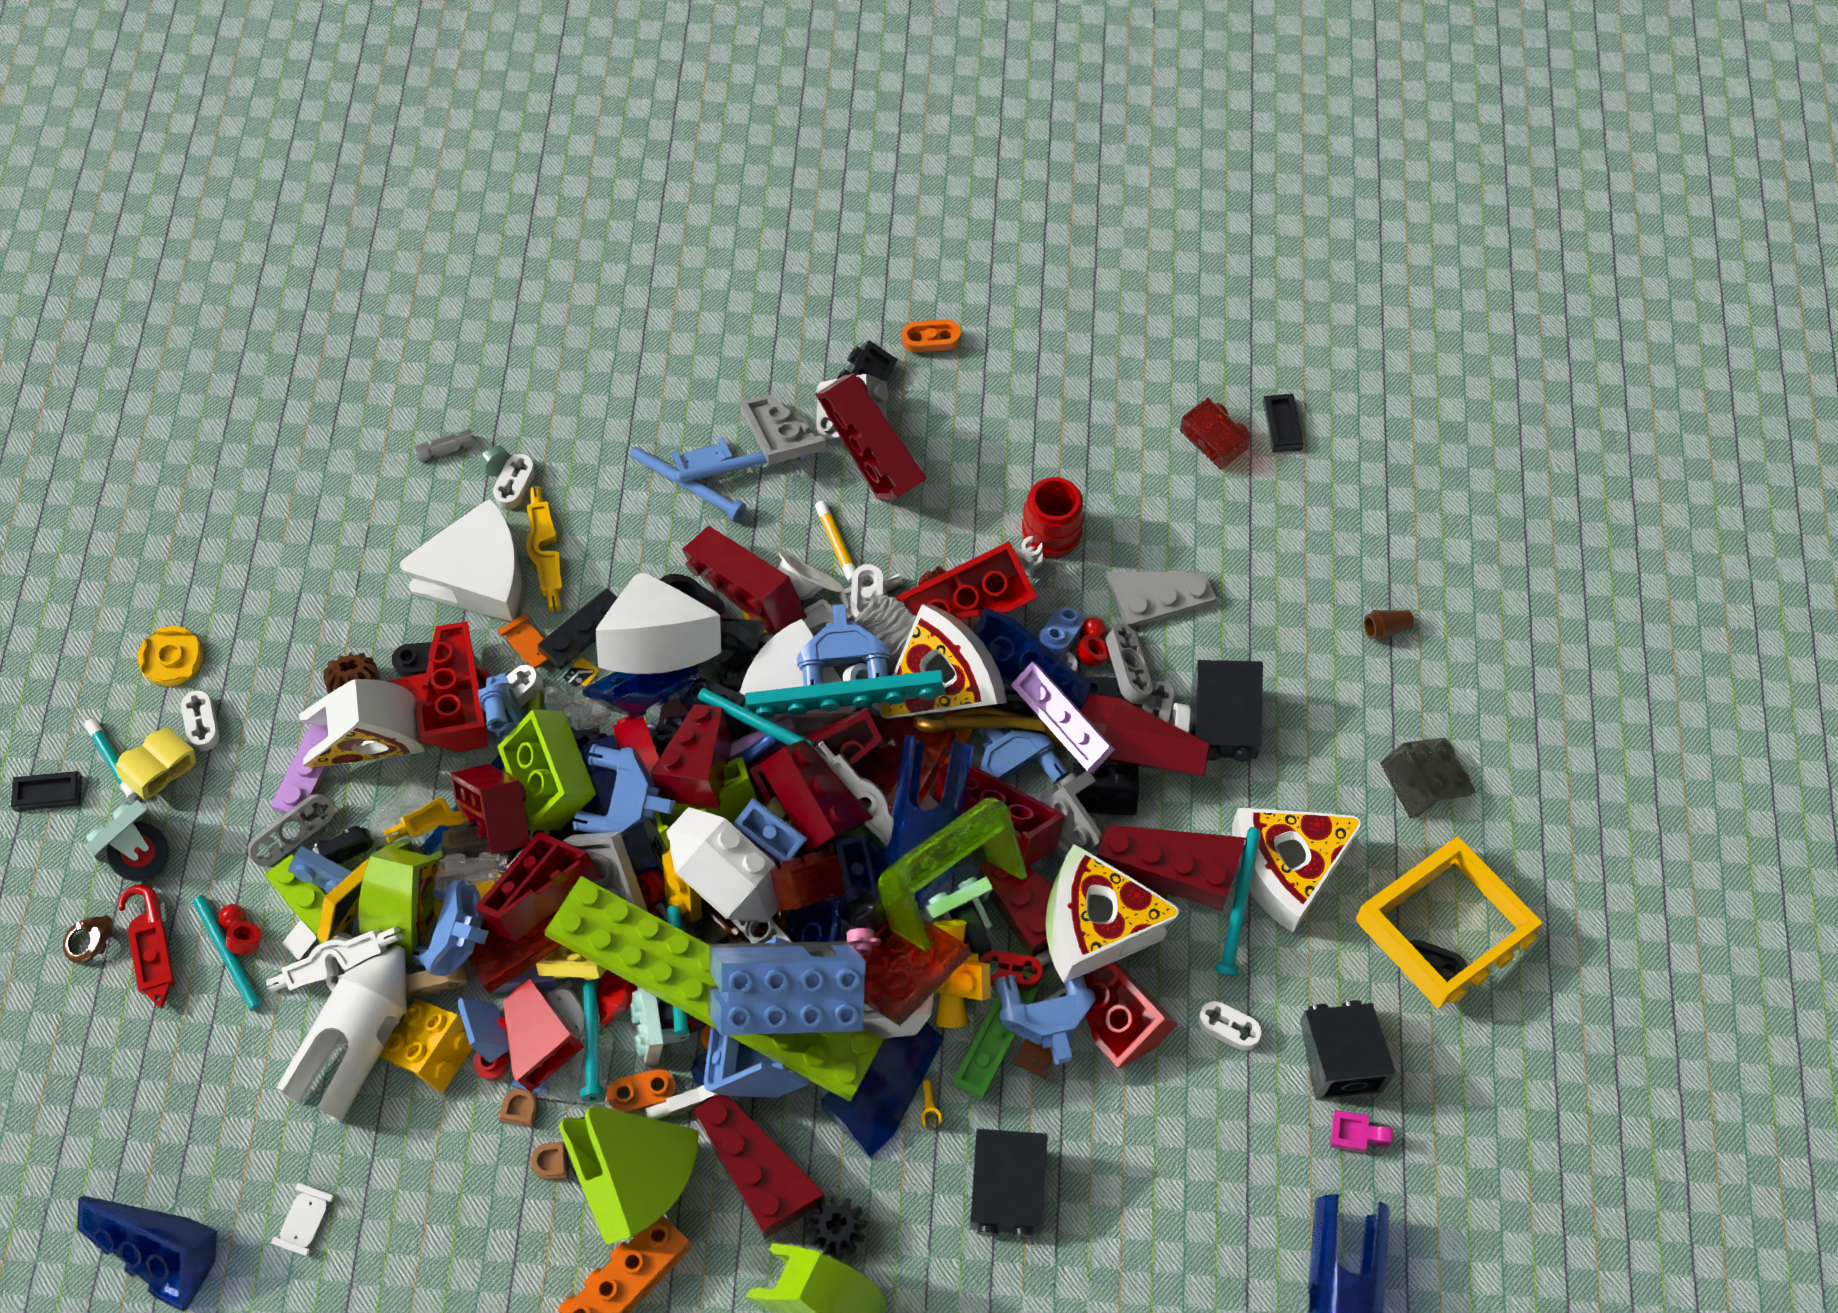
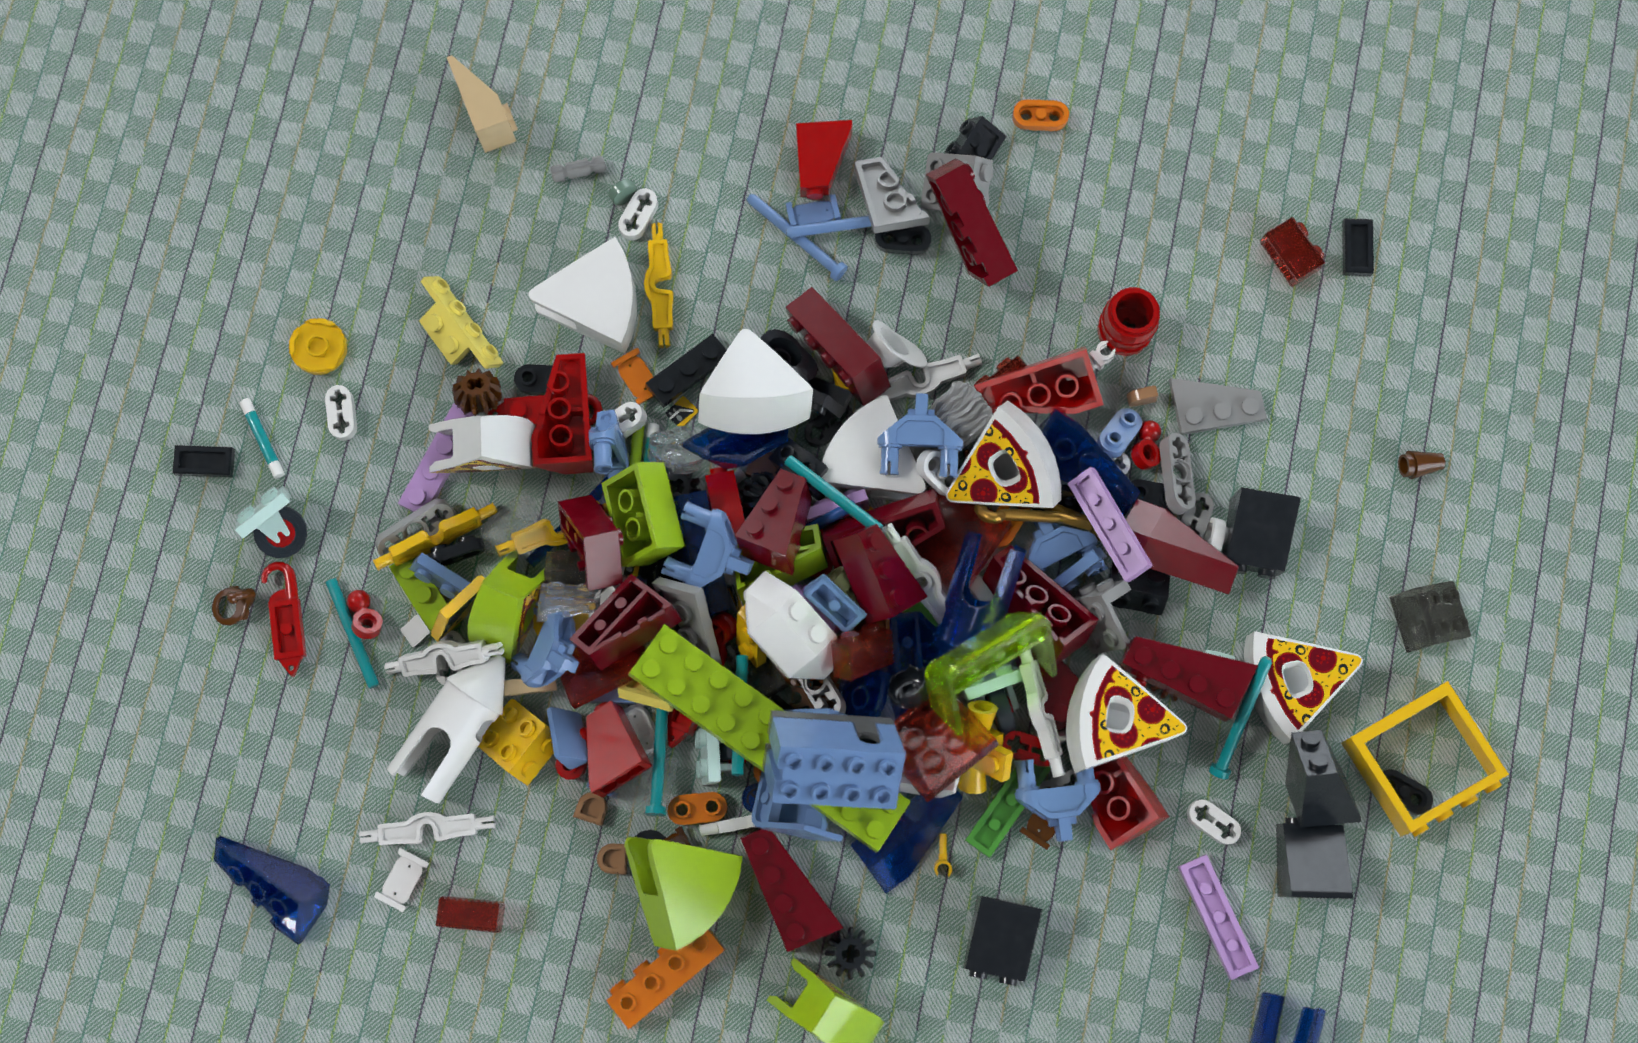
camera: 10 degrees right, 15 degrees up
(155, 763) = (299, 450): light yellow brick -> none
(310, 1162) = (412, 830): none -> white piece
(319, 618) = (453, 328): none -> light yellow bracket
(330, 825) = (447, 532): none -> yellow piece
(340, 396) = (489, 117): none -> tan slope
(386, 1244) = (470, 914): none -> clear red brick
(704, 399) = (820, 154): none -> red slope
(801, 471) = (903, 241): none -> black plate
(835, 539) = (926, 312): yellow bar -> none
(854, 693) = (930, 482): teal plate -> none
(862, 594) = (945, 374): white plate -> none
(862, 940) = (903, 717): bright pink plate -> none
(1008, 908) = (1042, 722): none -> white piece
(1043, 767) = (1088, 564): none -> medium blue plate
(1080, 593) = (1142, 396): none -> medium nougat tile
(1251, 1128) = (1218, 917): none -> lavender plate
(1334, 959) = (1318, 782): none -> black slope
(1353, 1132) = (1307, 934): dark pink plate -> none

